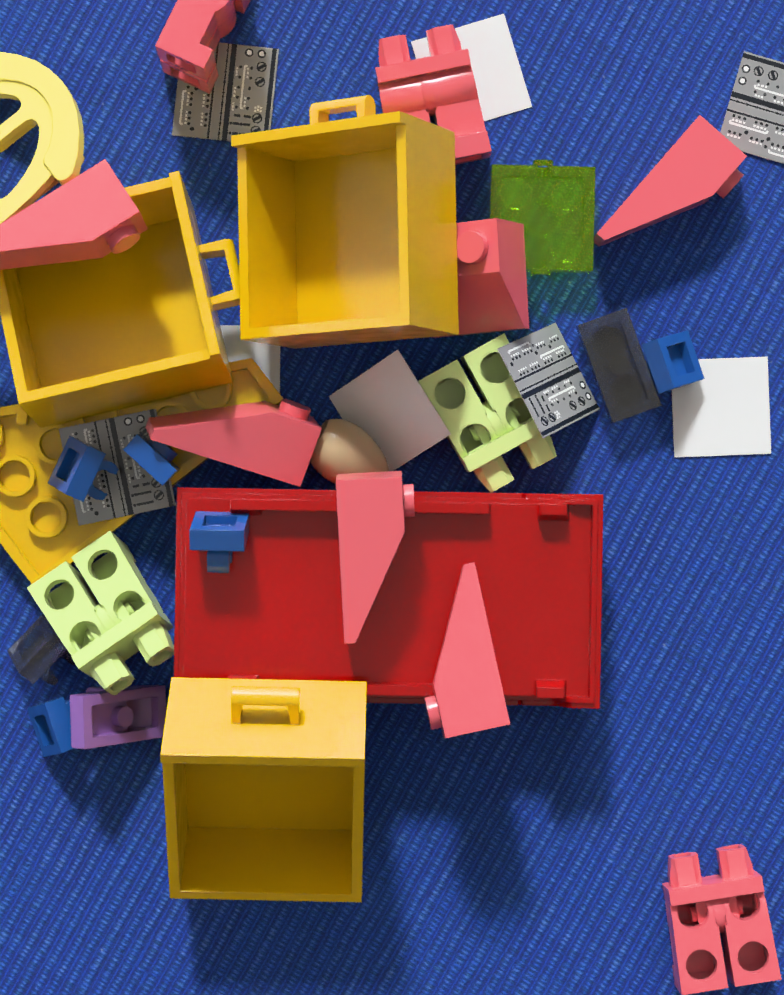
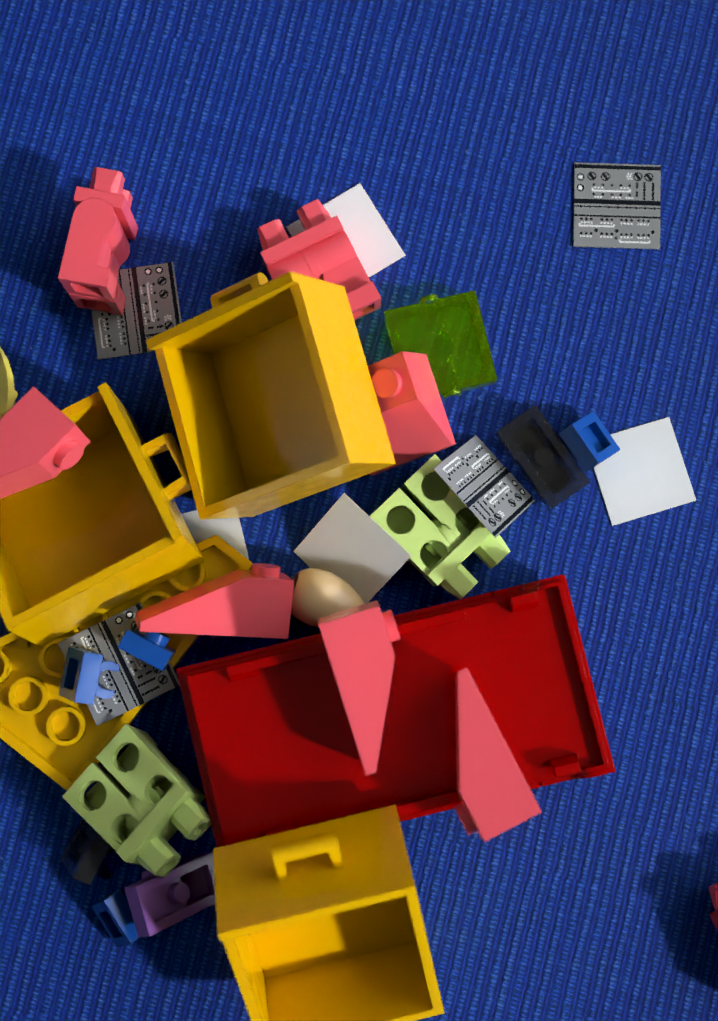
camera: 25 degrees left, 5 degrees down
(219, 535) = (226, 704): blue tile -> none
(684, 178) = (556, 280): coral slope -> none

